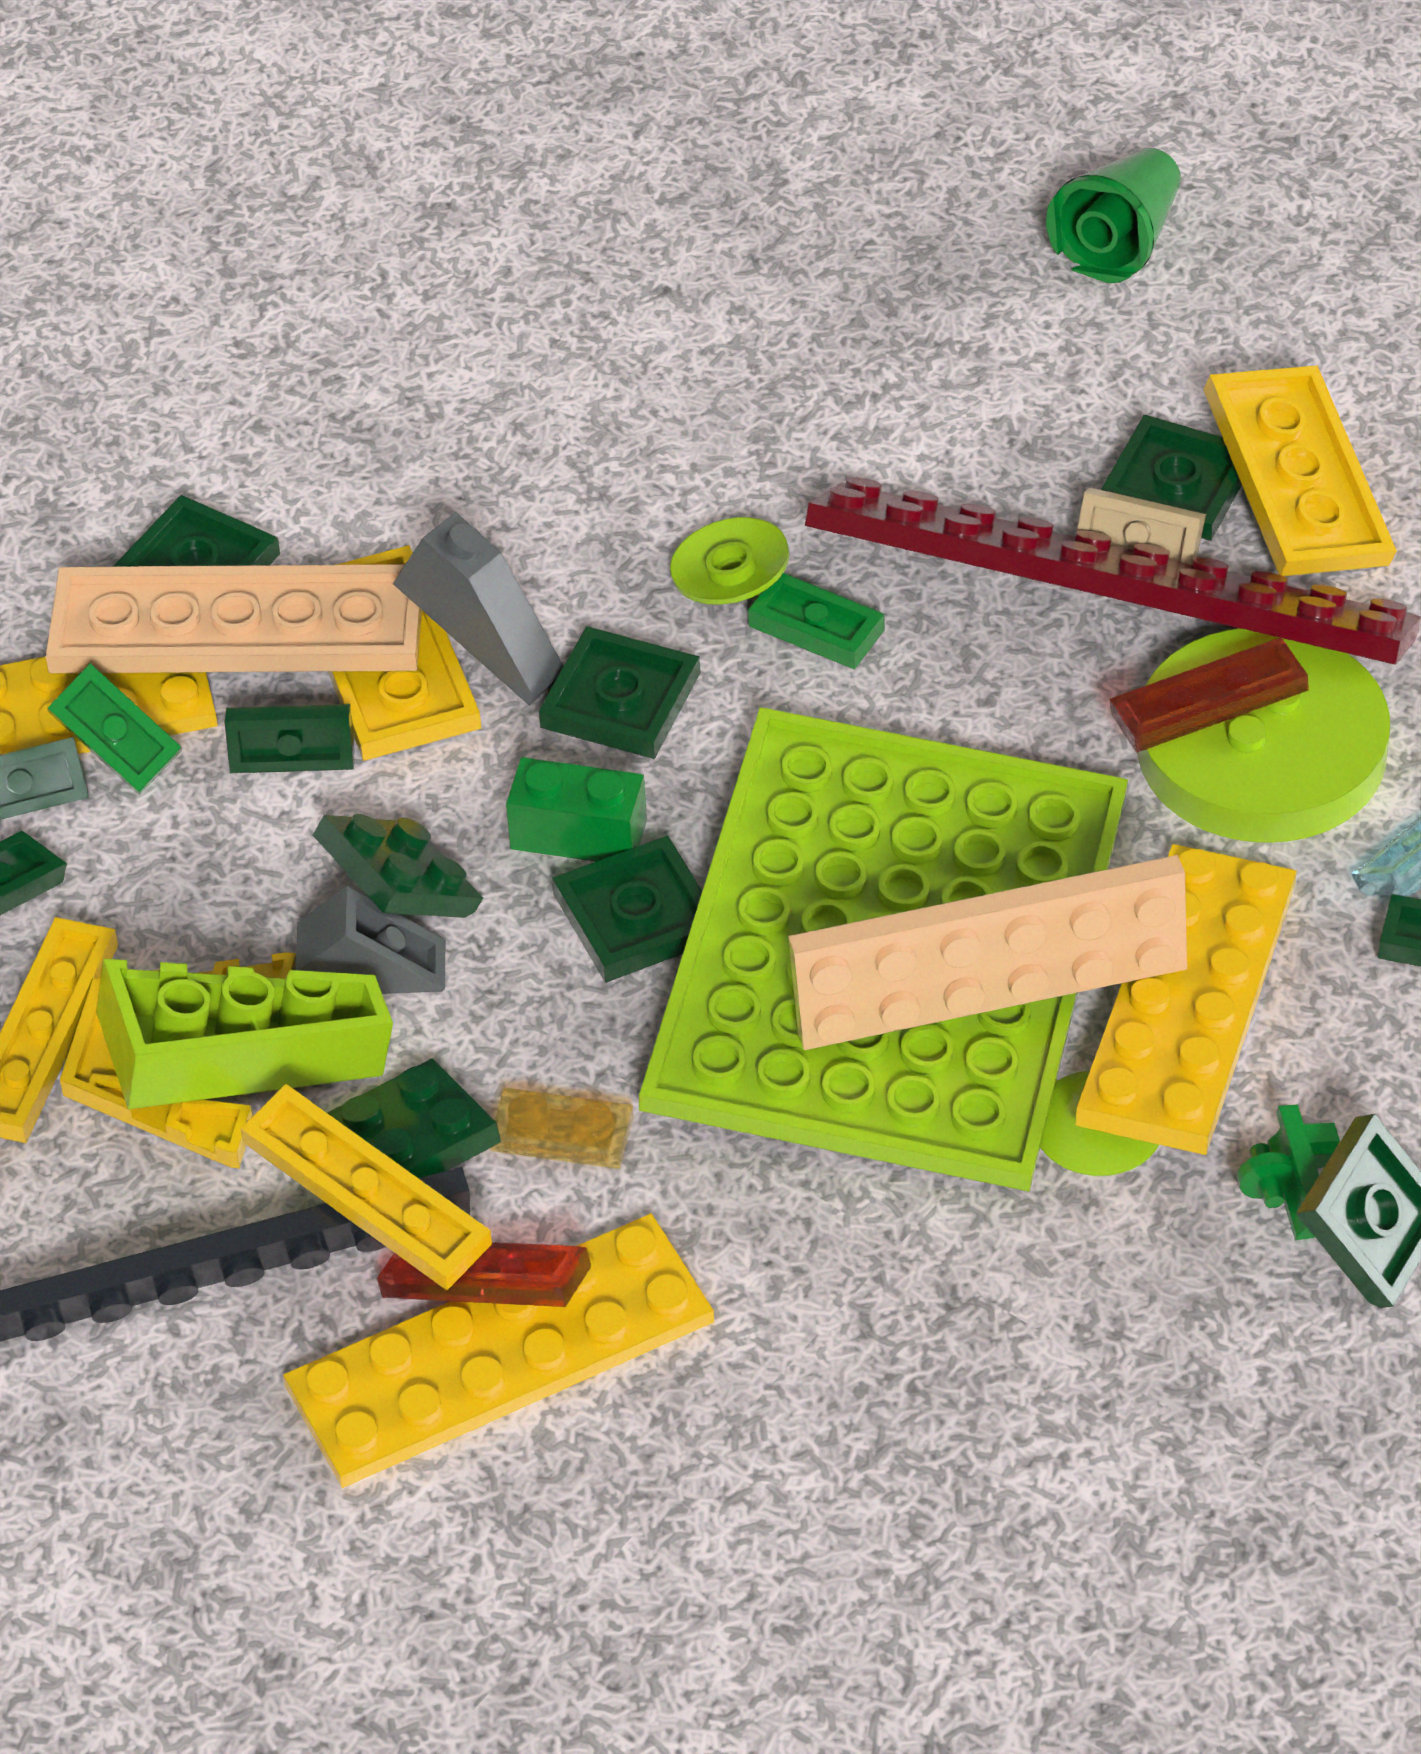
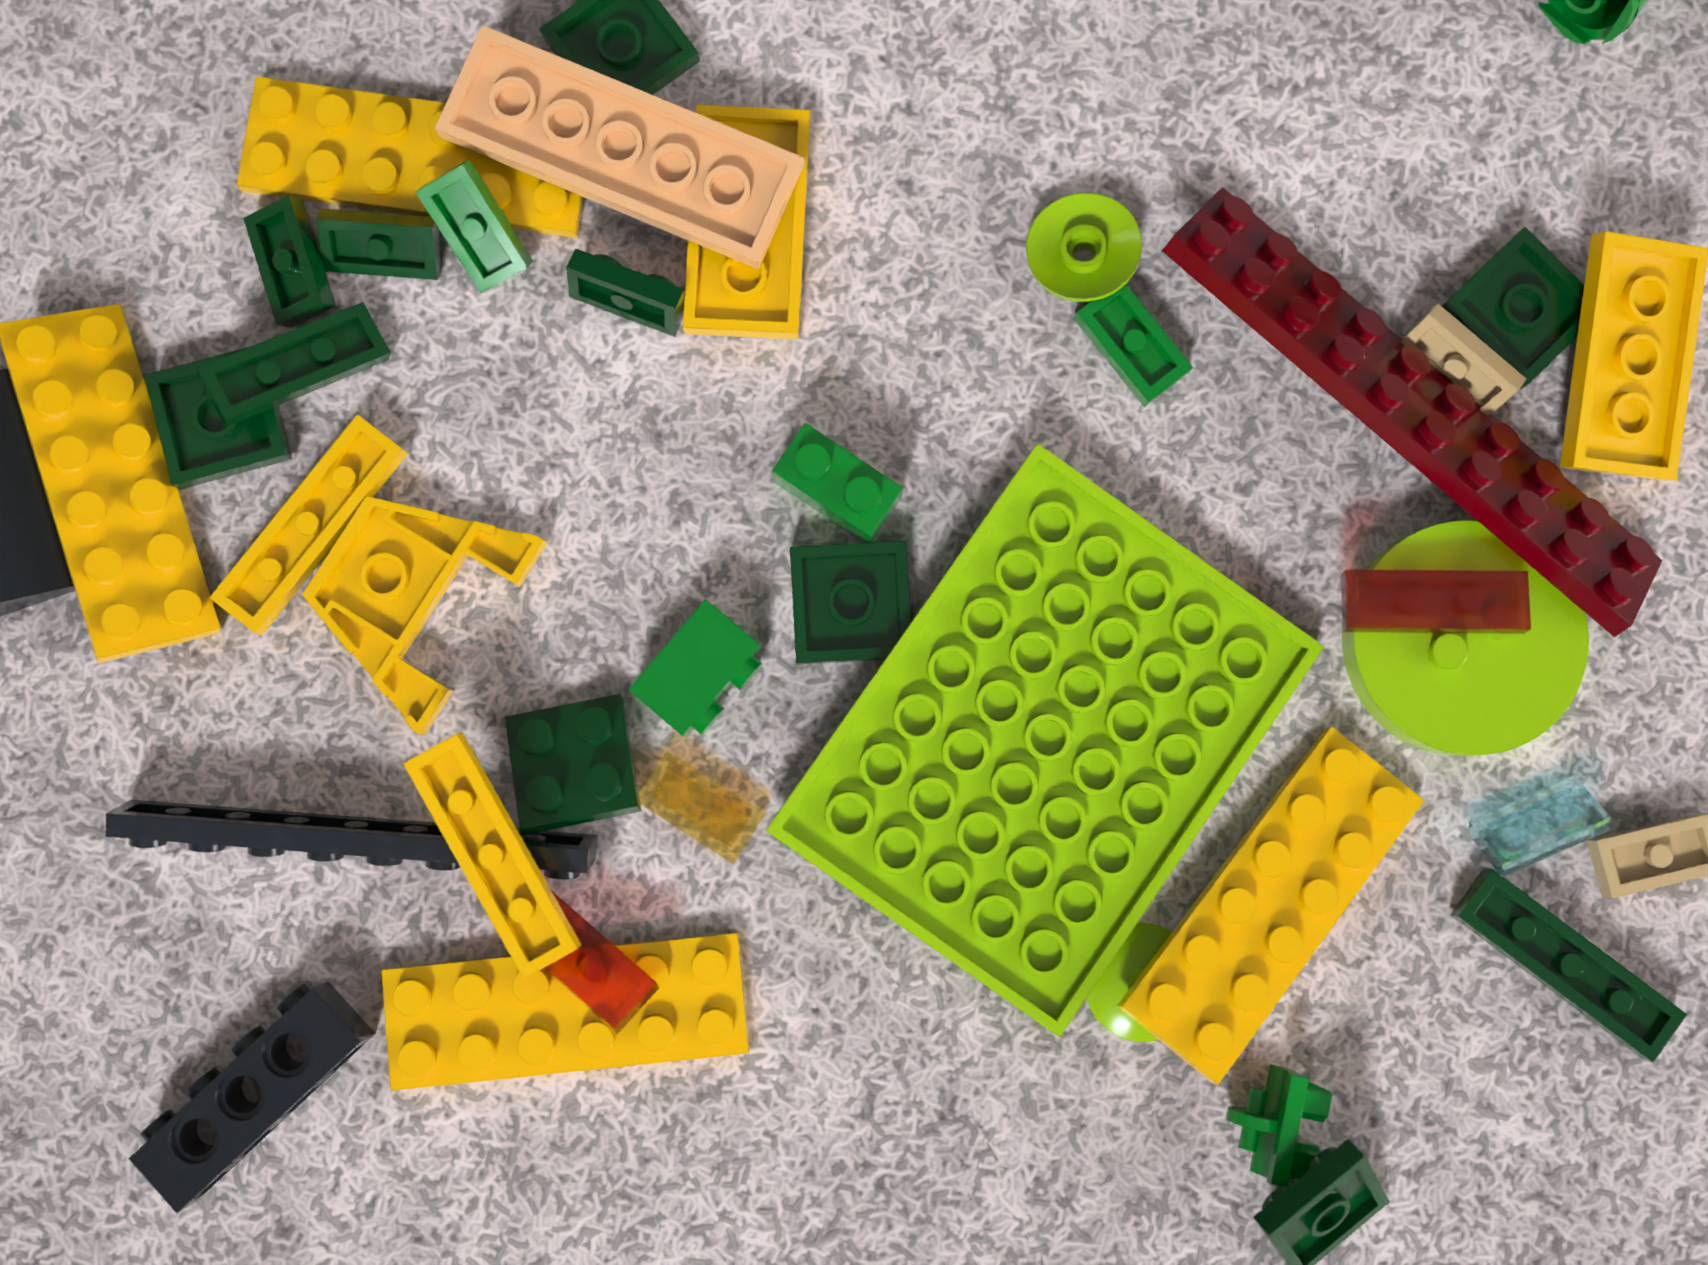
camera: 15 degrees right, 35 degrees up
(154, 1616) = (185, 1166): none -> black brick
(237, 1032) = (430, 625): lime wedge -> none
(358, 938) = (607, 561): dark grey slope -> none
(398, 866) = (659, 487): dark green plate -> none
(480, 604) = (836, 230): dark grey slope -> none
(504, 1006) = (698, 670): none -> green brick
(620, 692) = (930, 354): dark green plate -> none
(989, 952) = (1134, 854): light nougat plate -> none

